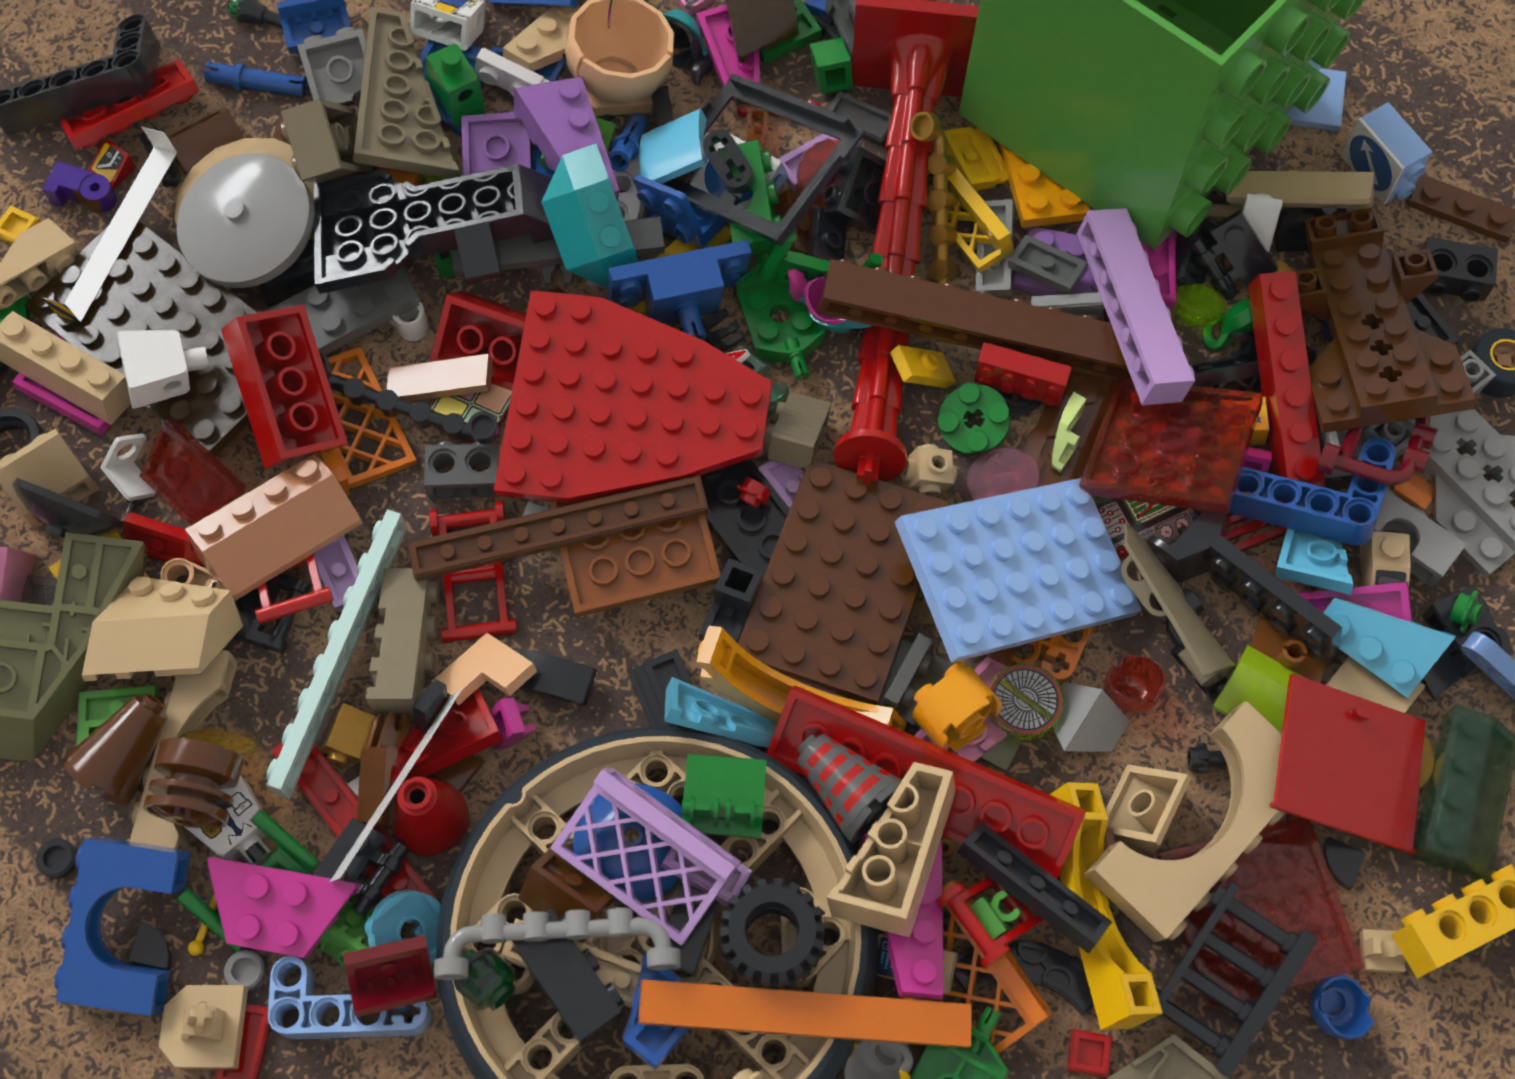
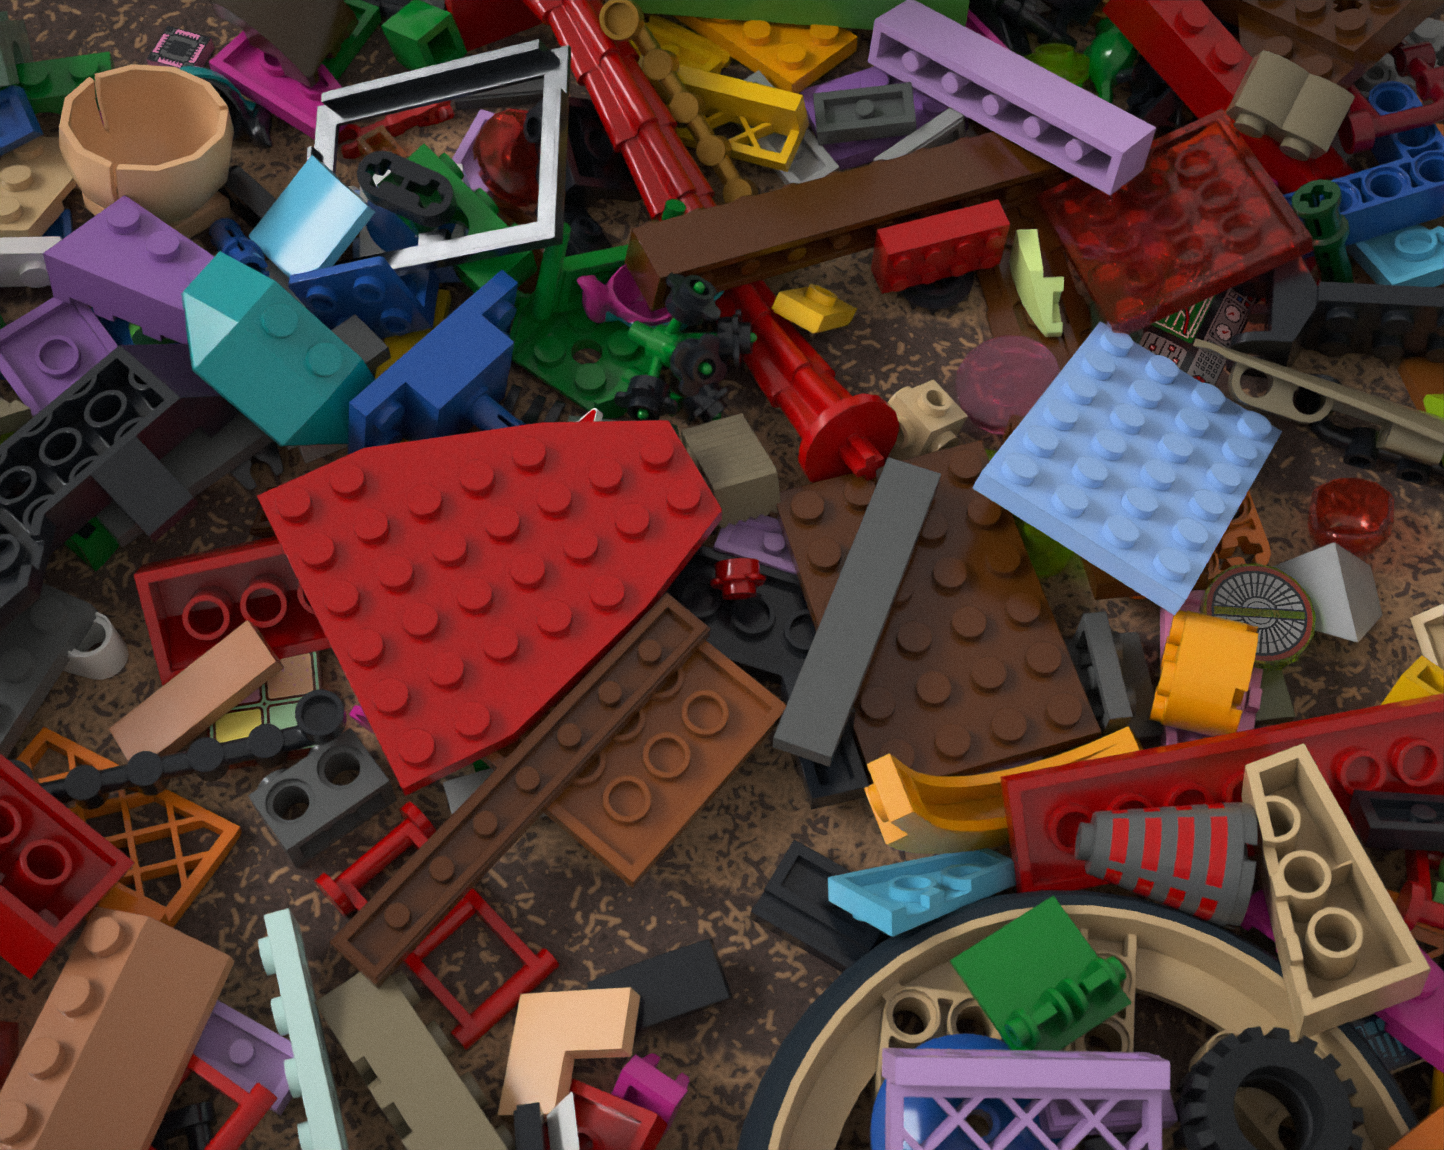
camera: 40 degrees left, 5 degrees down
(795, 549) = (856, 613): none -> dark grey tile
(818, 353) = (693, 358): none -> black plant
(973, 399) = (918, 306): green plate -> none
(1253, 509) = (1326, 227): none -> dark green pin
(1293, 417) = (1289, 106): none -> dark tan brick

